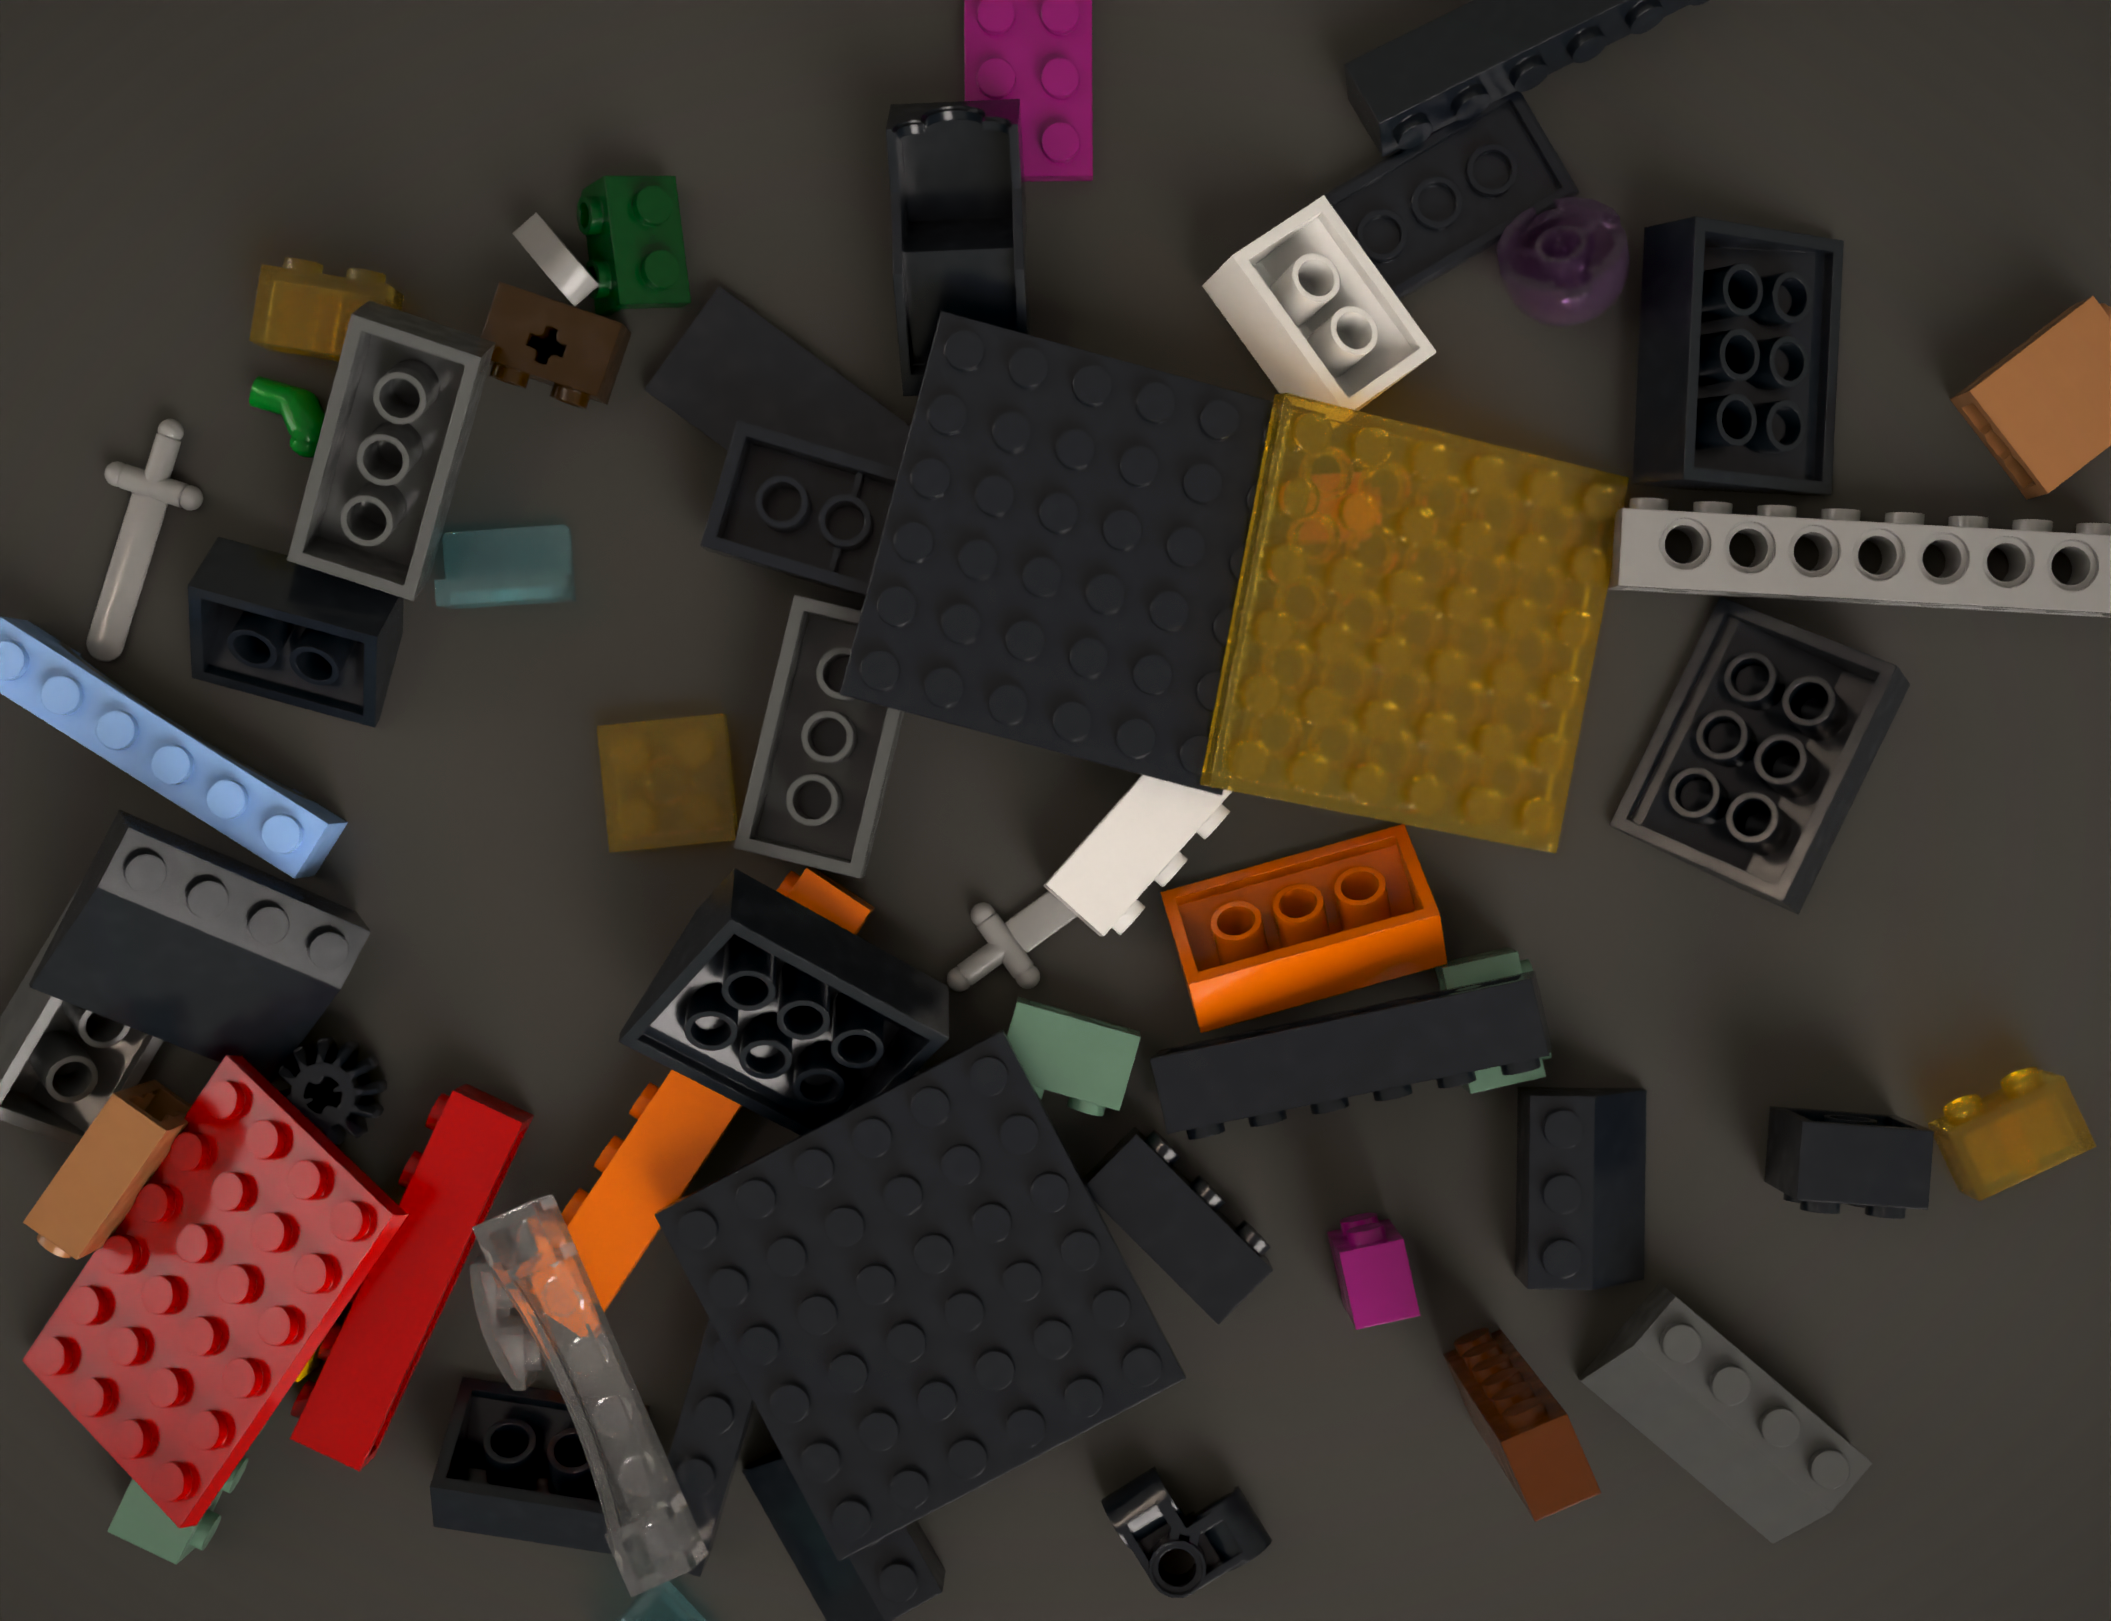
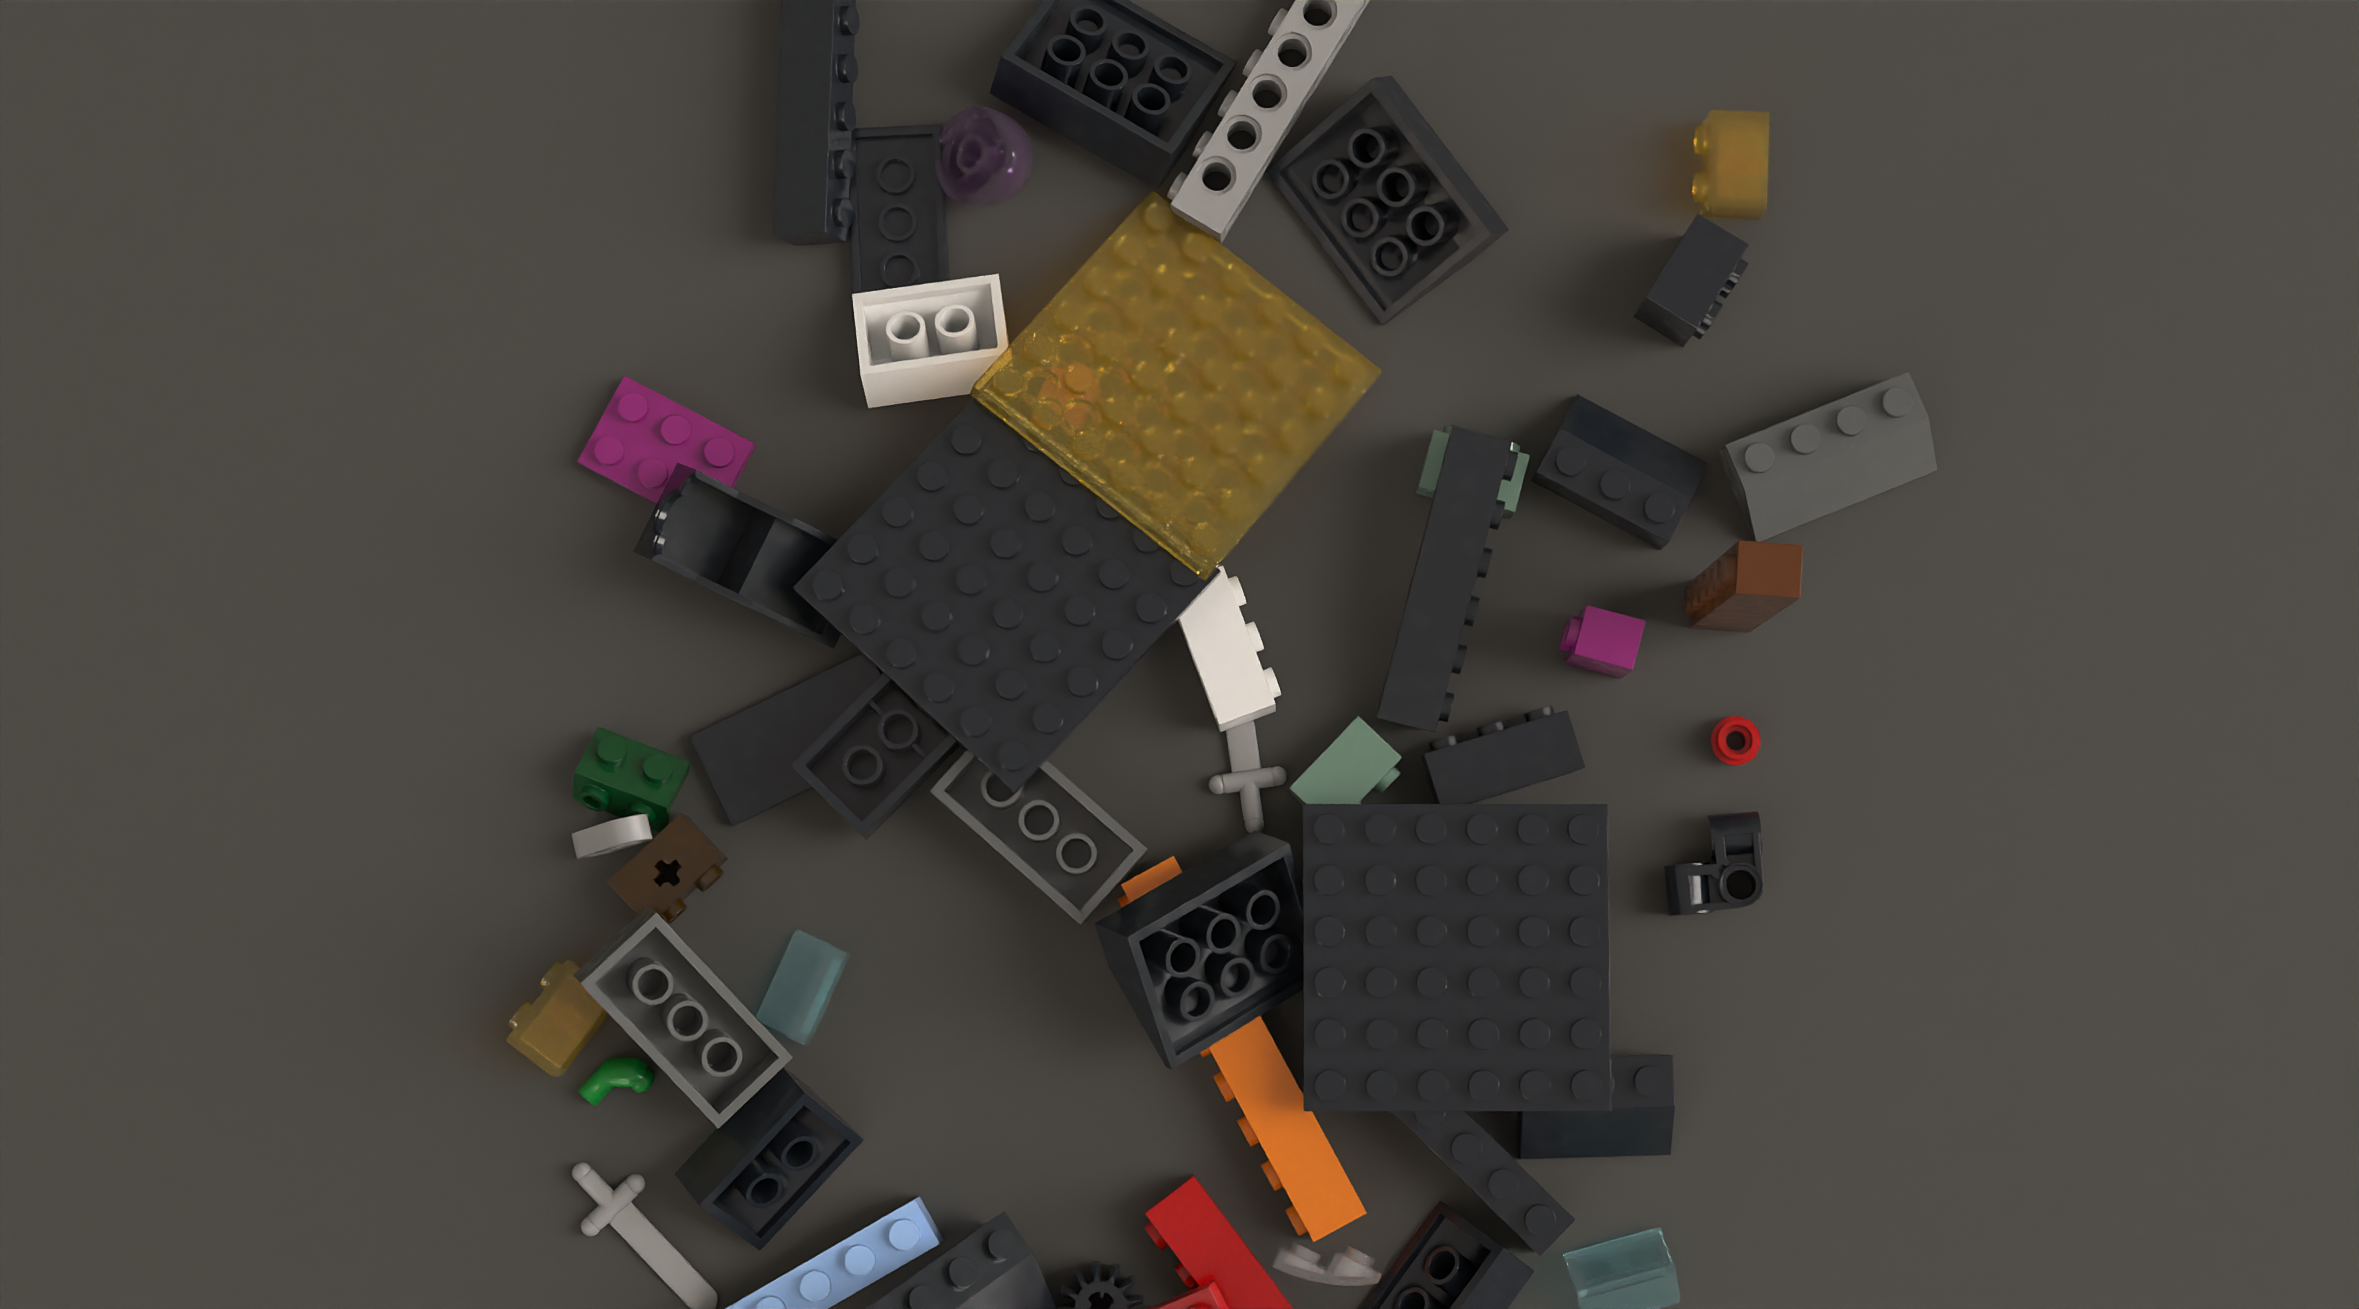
camera: 60 degrees left, 5 degrees down
(638, 1492) = (1403, 1217): clear arch -> none
(667, 782) = (1011, 954): clear yellow plate -> none
(1304, 928) = (1343, 567): orange slope -> none
(1347, 1490) = (1749, 734): none -> red plate

